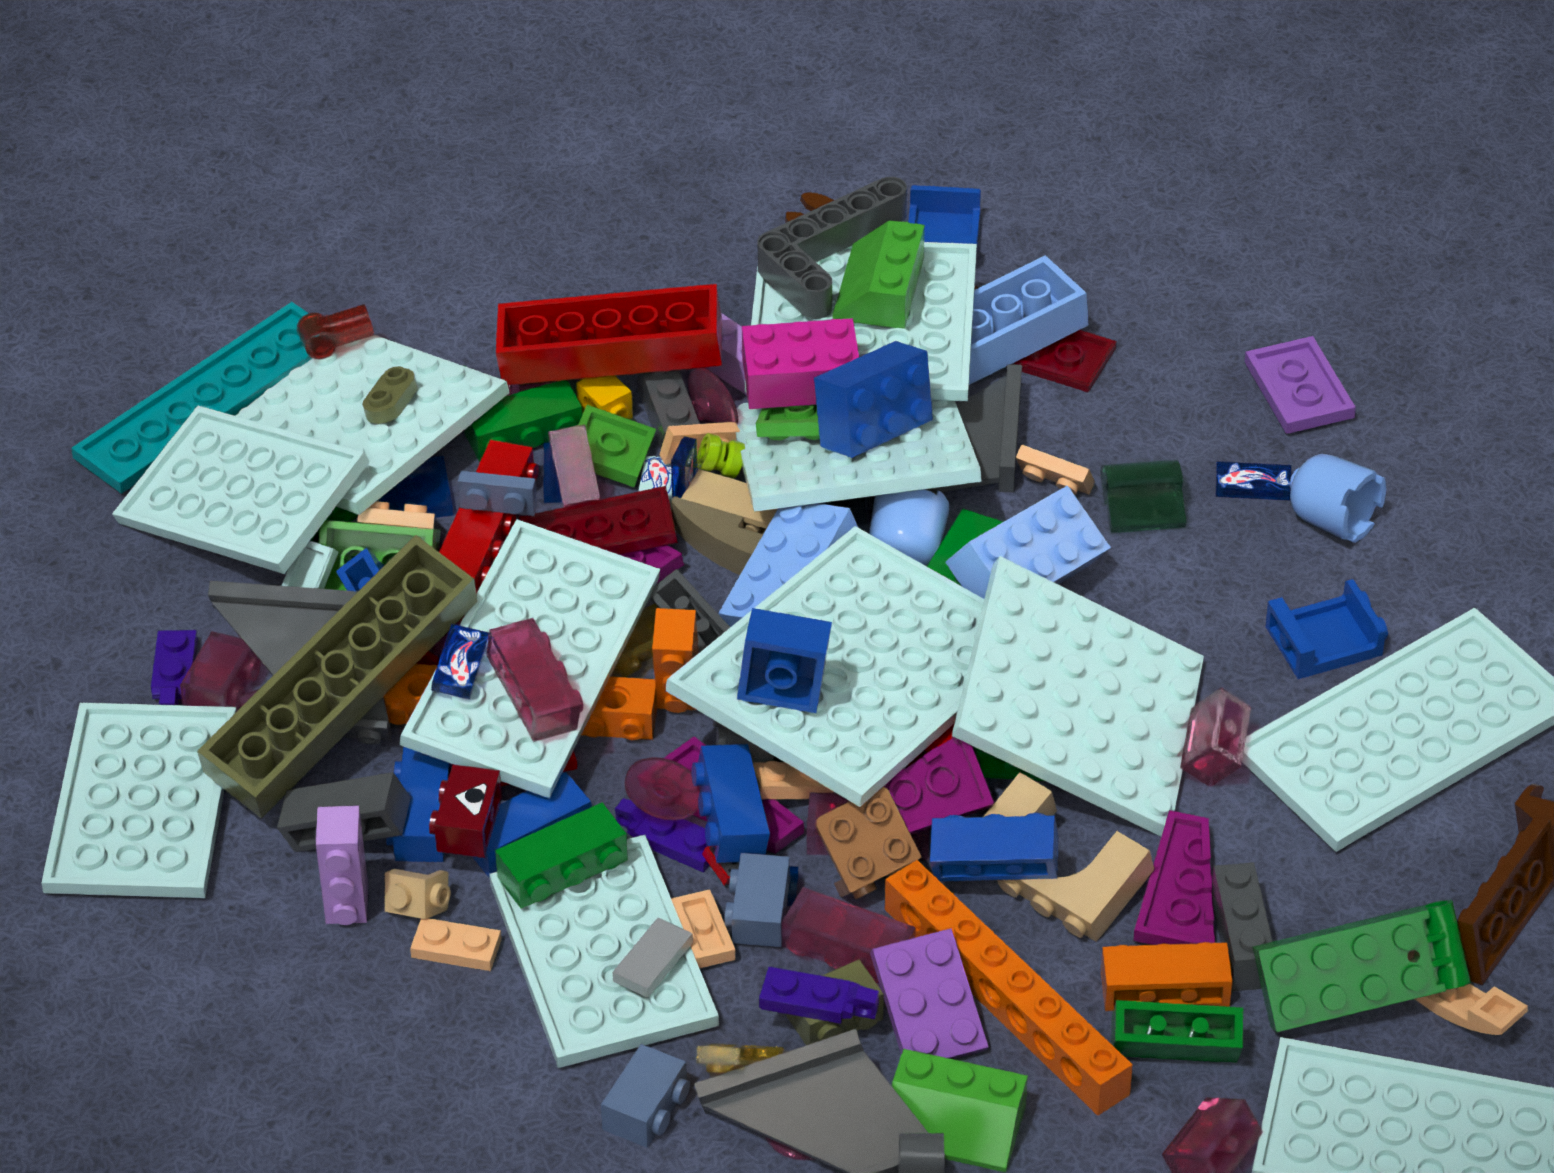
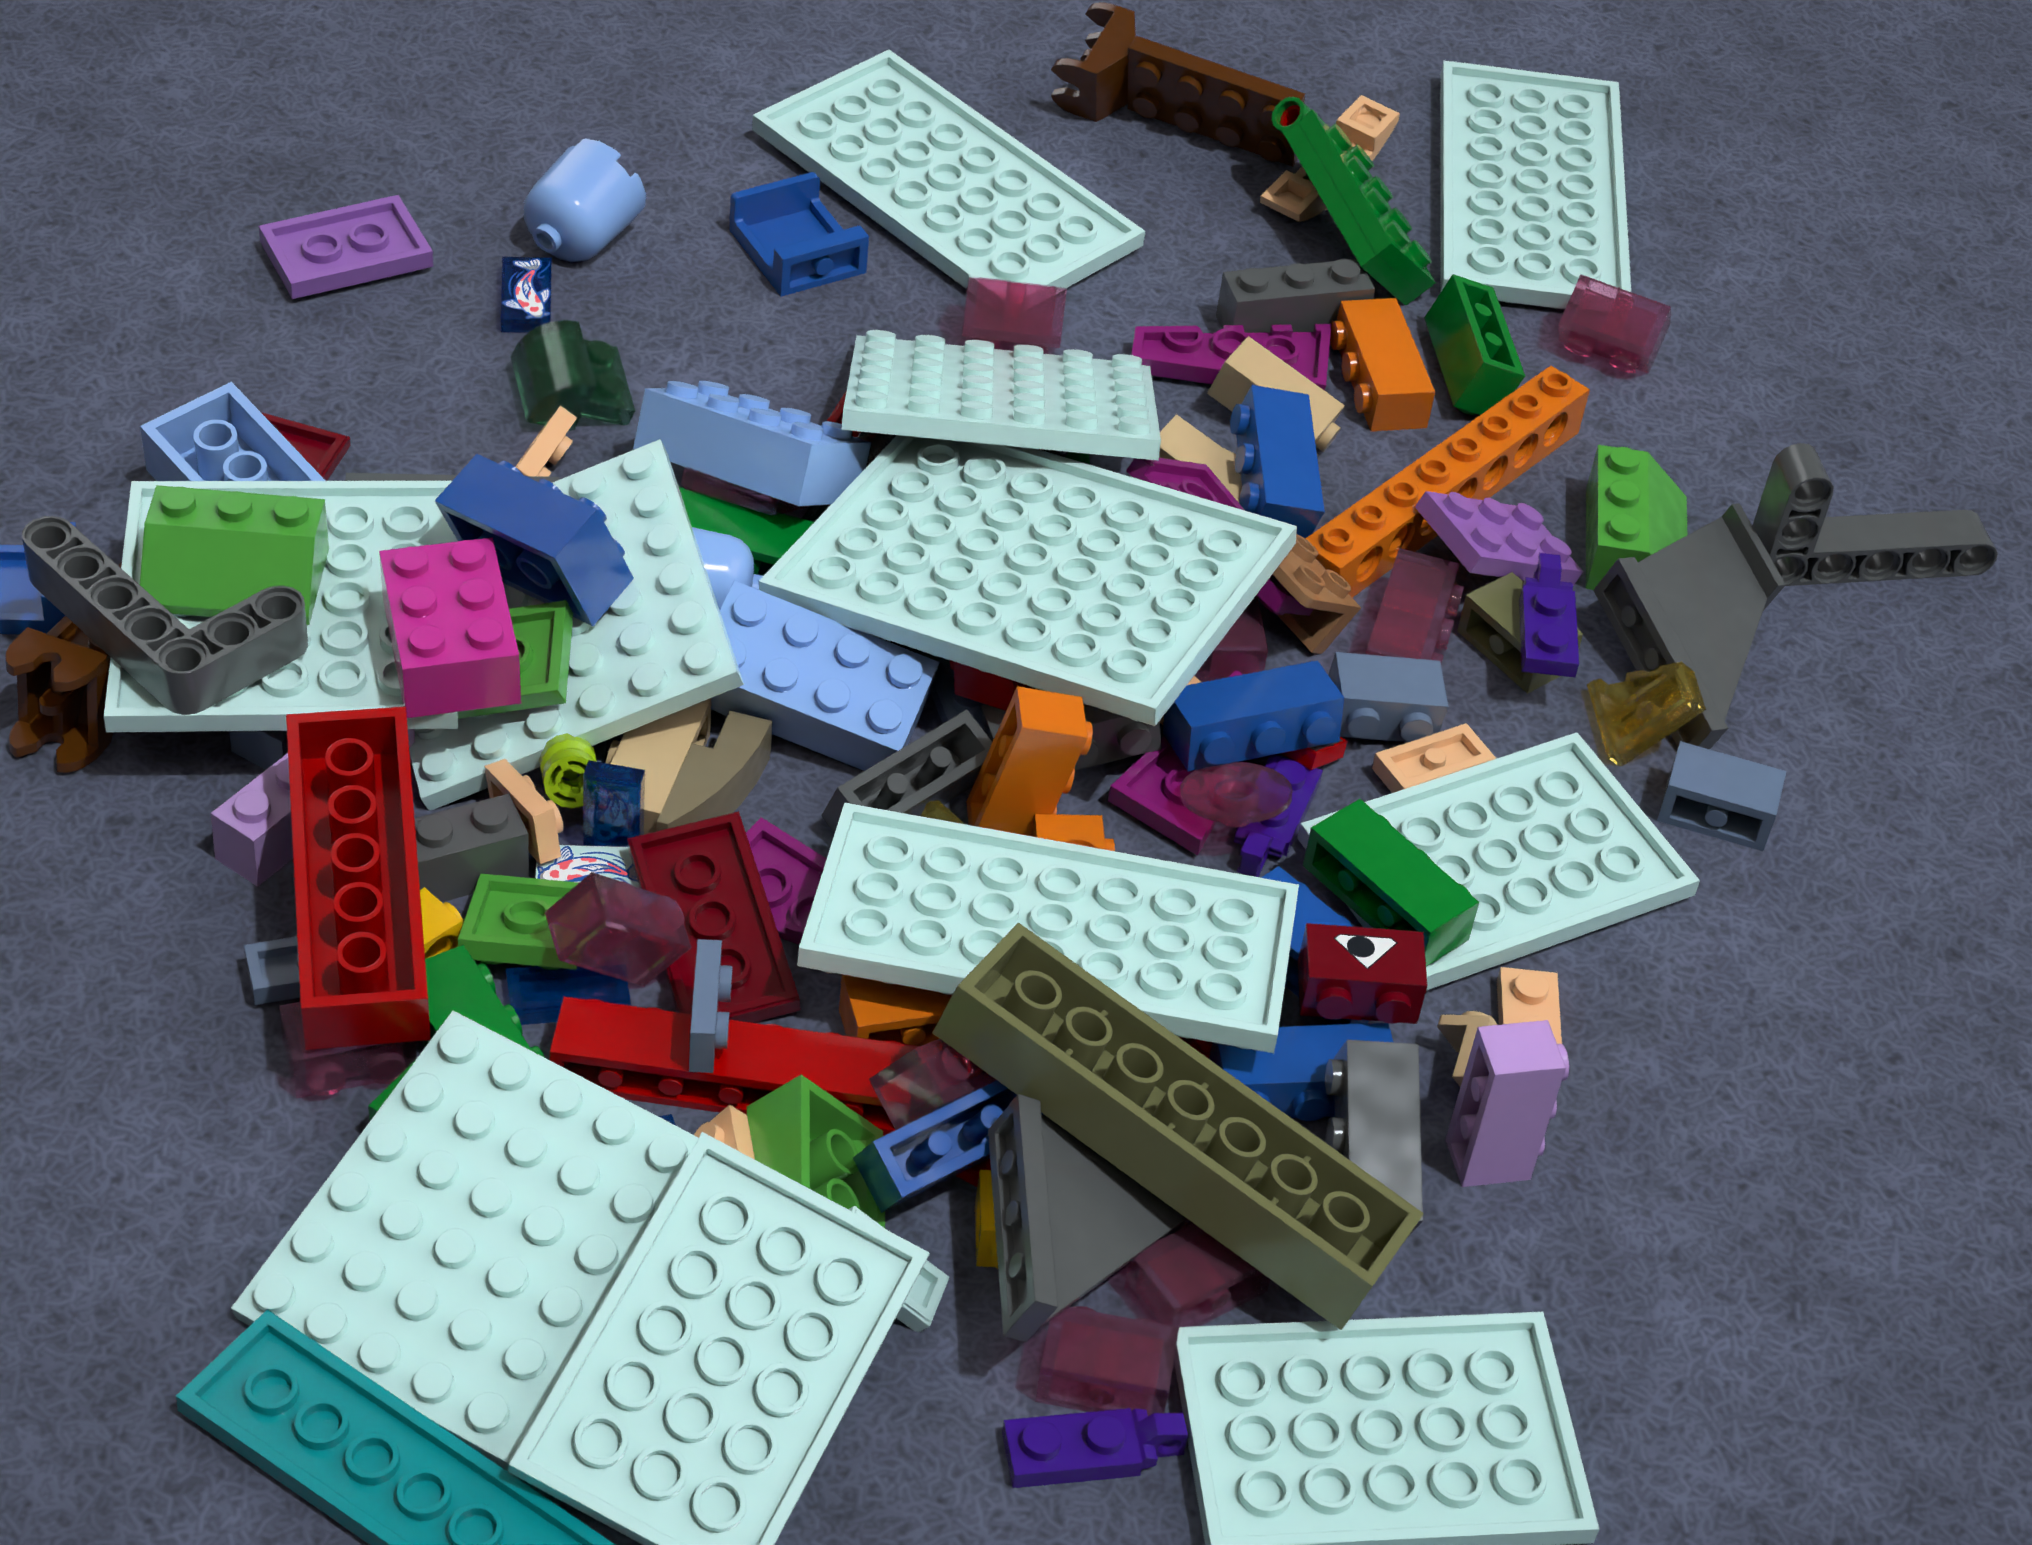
camera: 105 degrees left, 0 degrees up
(333, 330) = (298, 1298): clear red piece -> none
(390, 395) = (491, 1164): olive plate -> none
(460, 661) = (1134, 973): tile -> none
(534, 679) = (1138, 890): clear pink brick -> none
(652, 957) = (1519, 789): light grey tile -> none
(711, 398) = (449, 778): clear pink dish -> none
(784, 660) = (1128, 565): blue brick -> none

